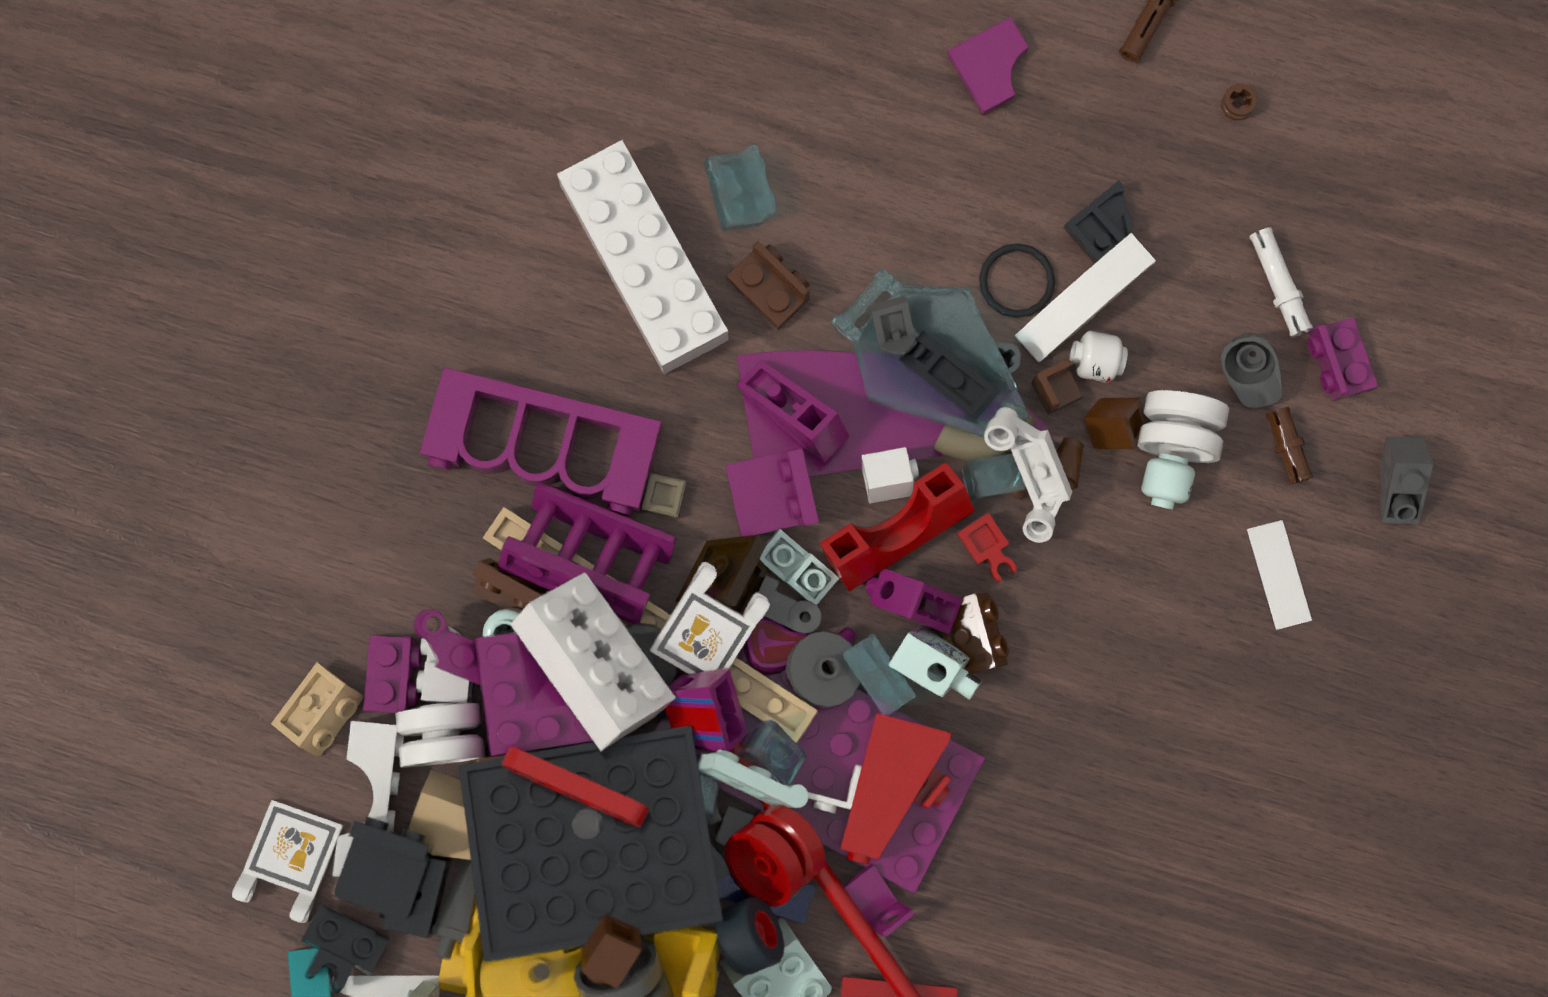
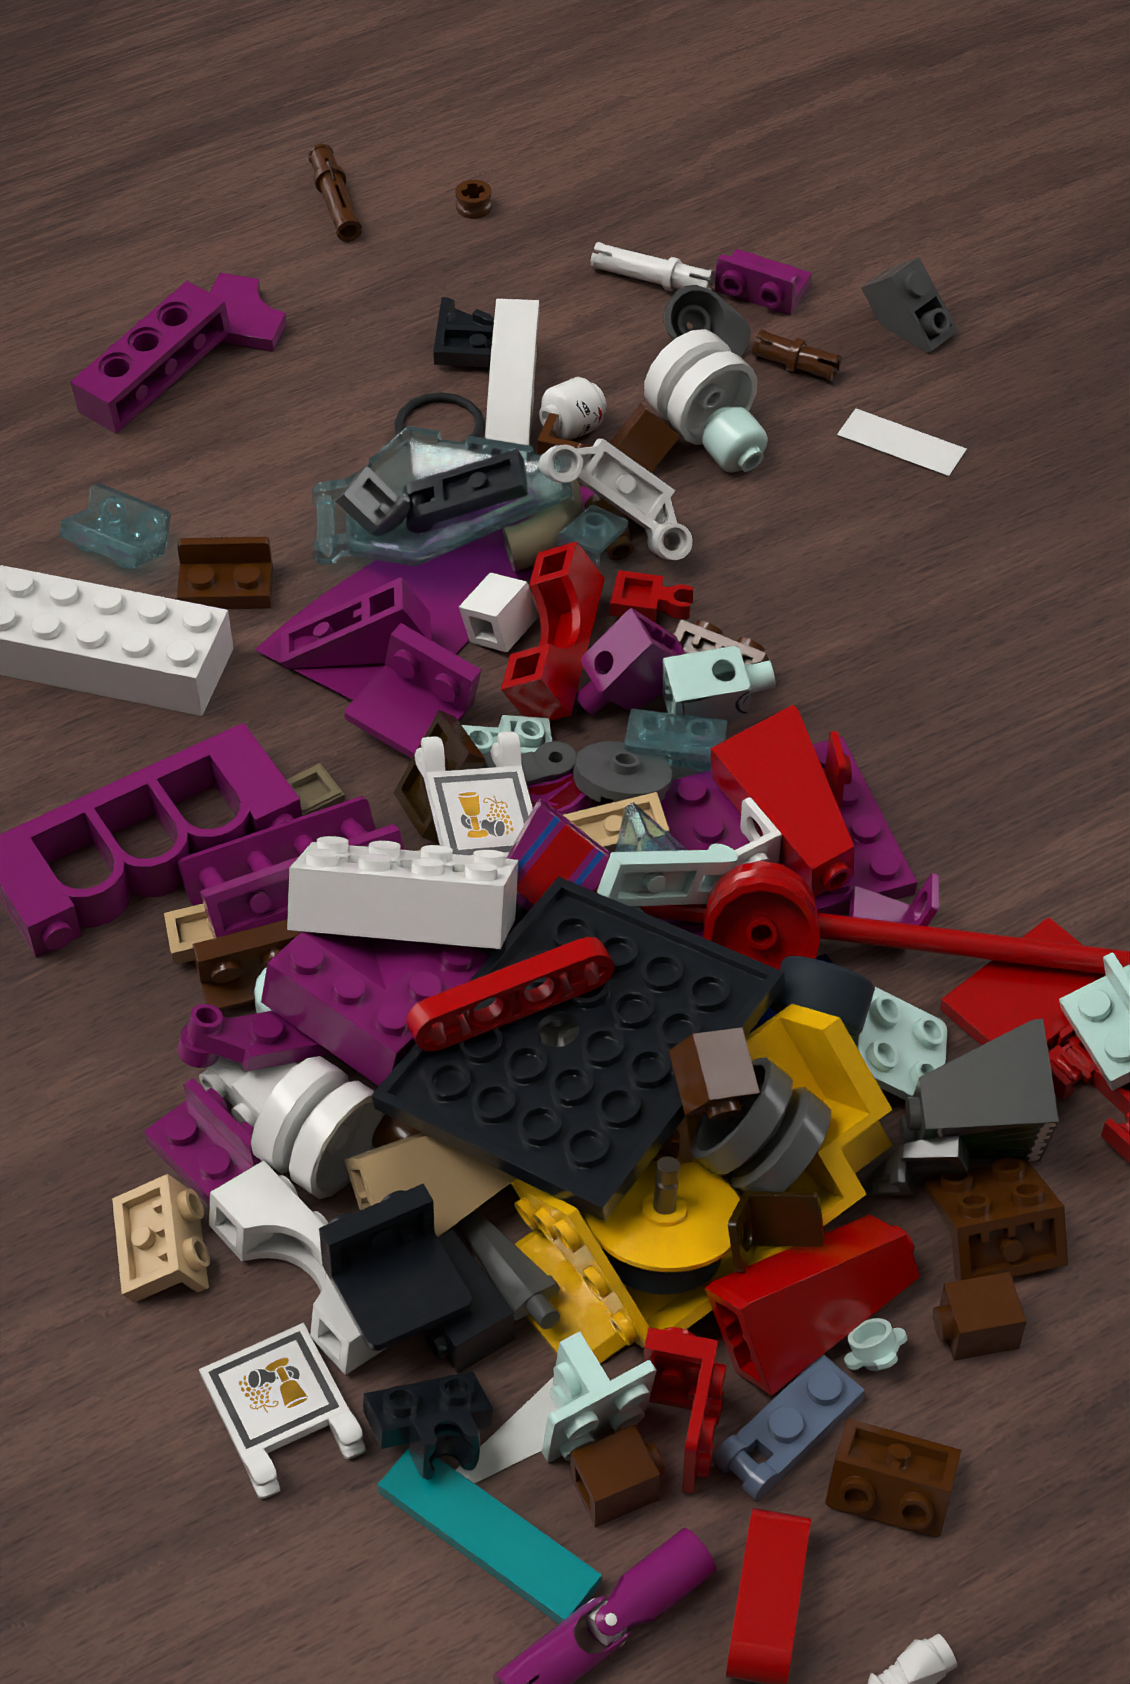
camera: 45 degrees left, 30 degrees down
(911, 69) = (150, 357): none -> magenta brick

